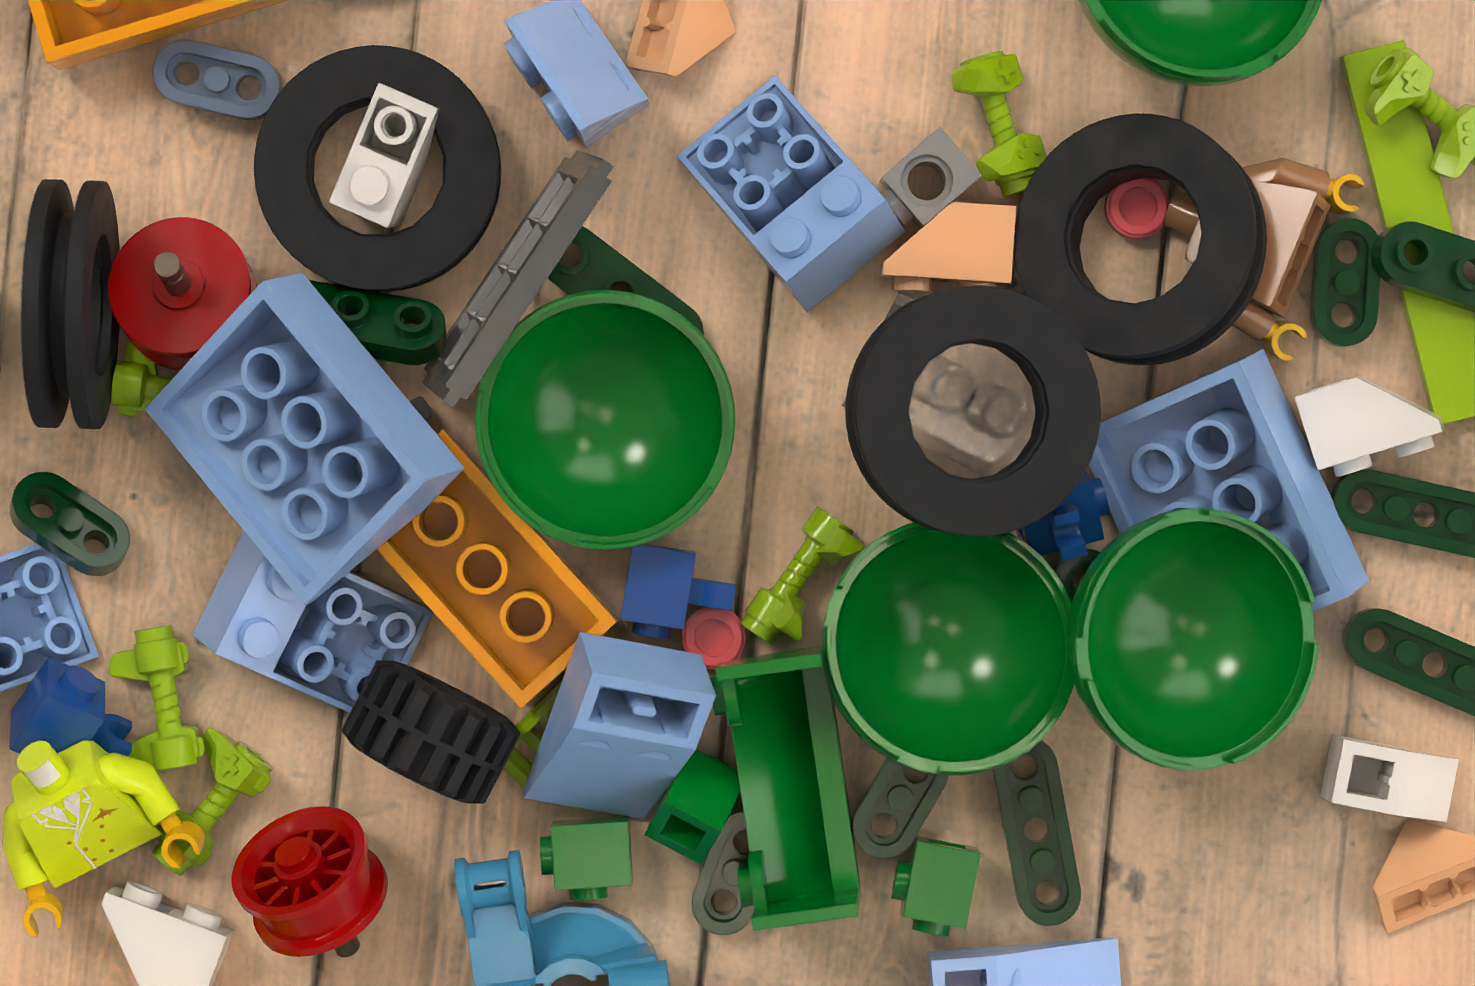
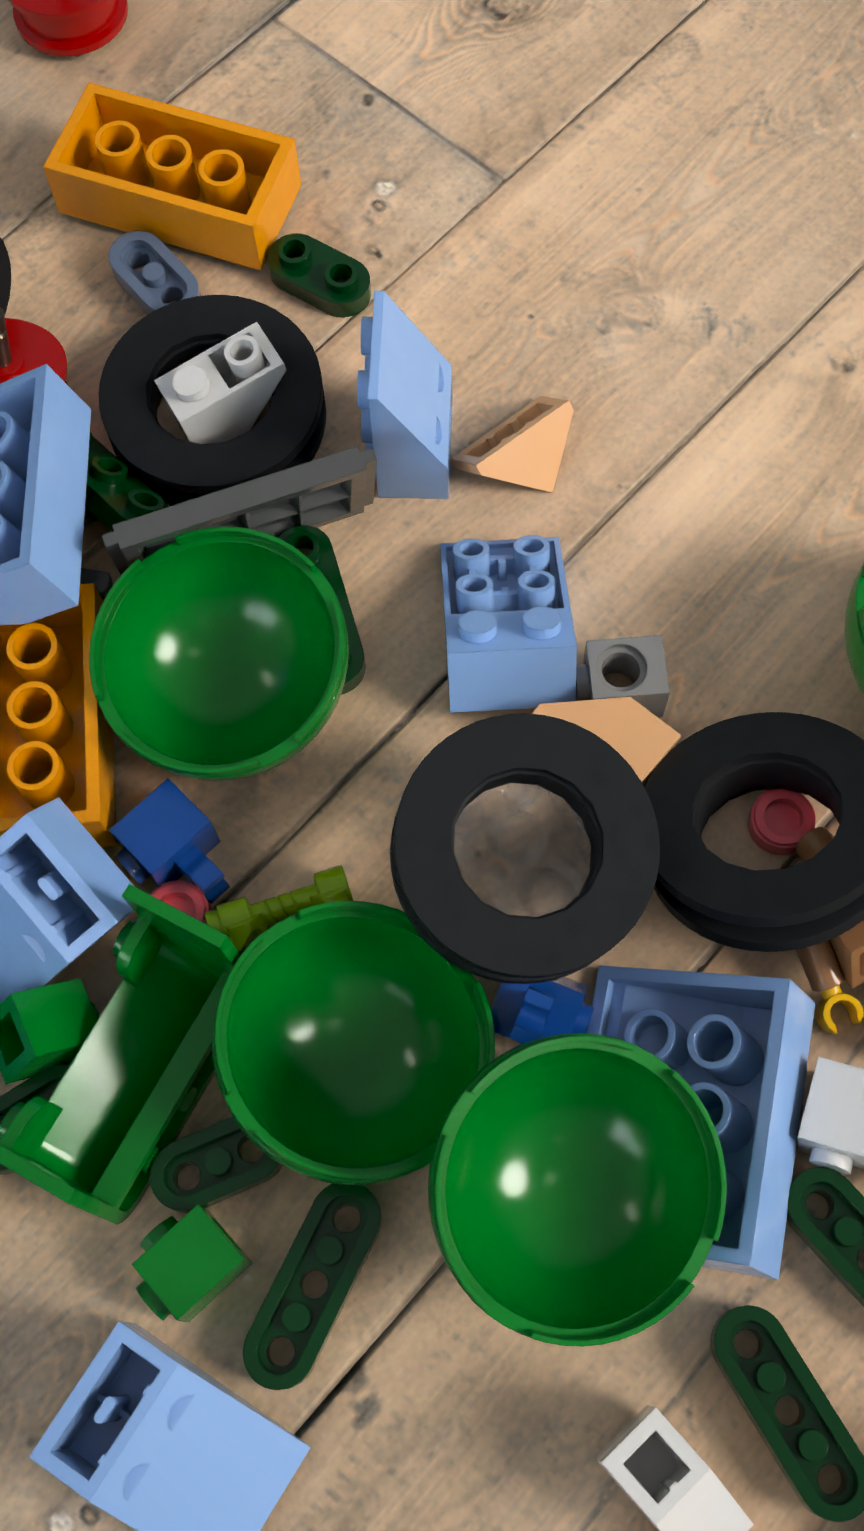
camera: 35 degrees right, 20 degrees down
(1013, 155) = (729, 641): lime piece -> none

